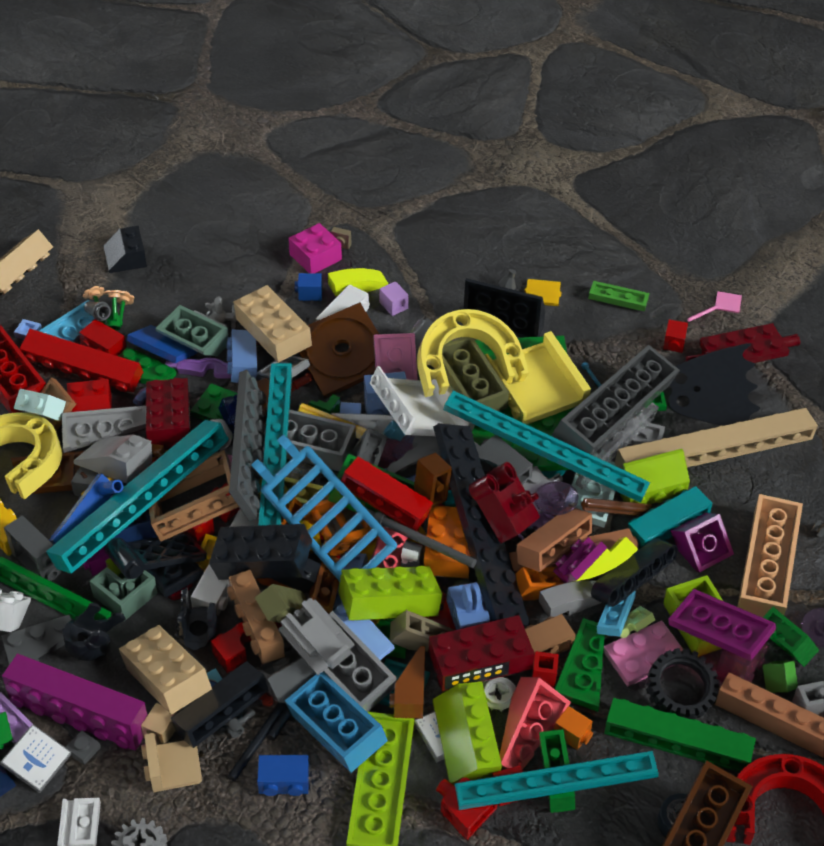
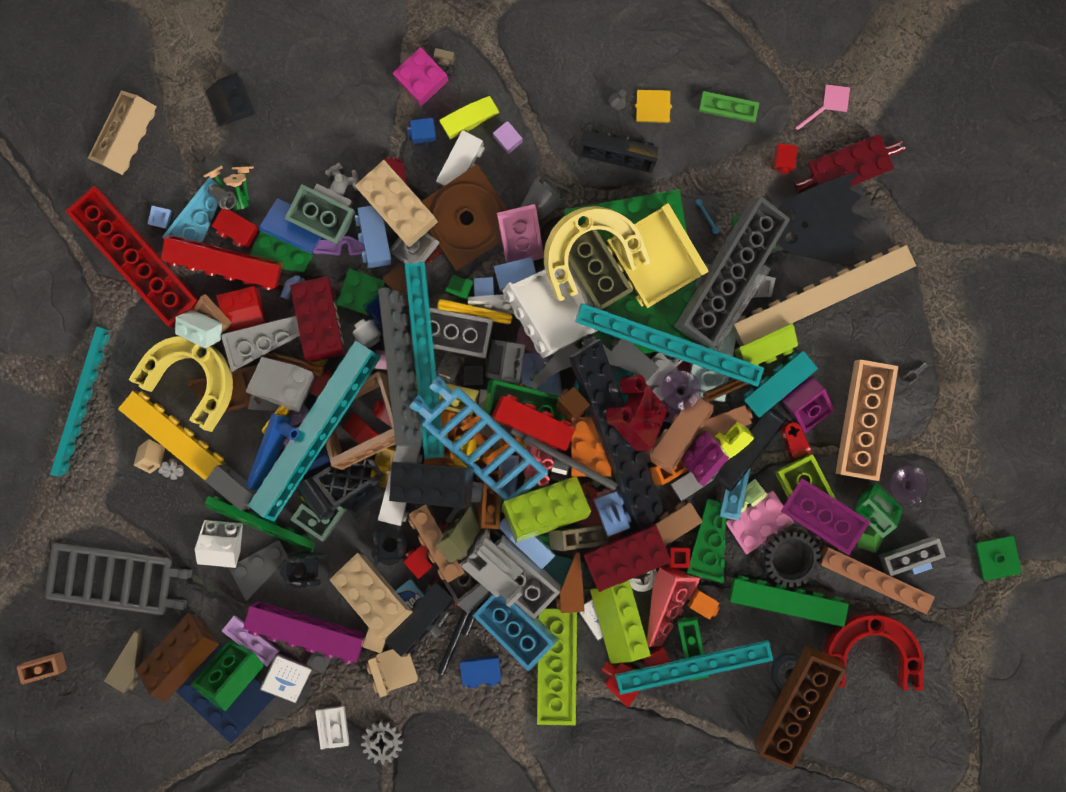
camera: 10 degrees left, 40 degrees up
(685, 566) = (796, 442): none -> red piece

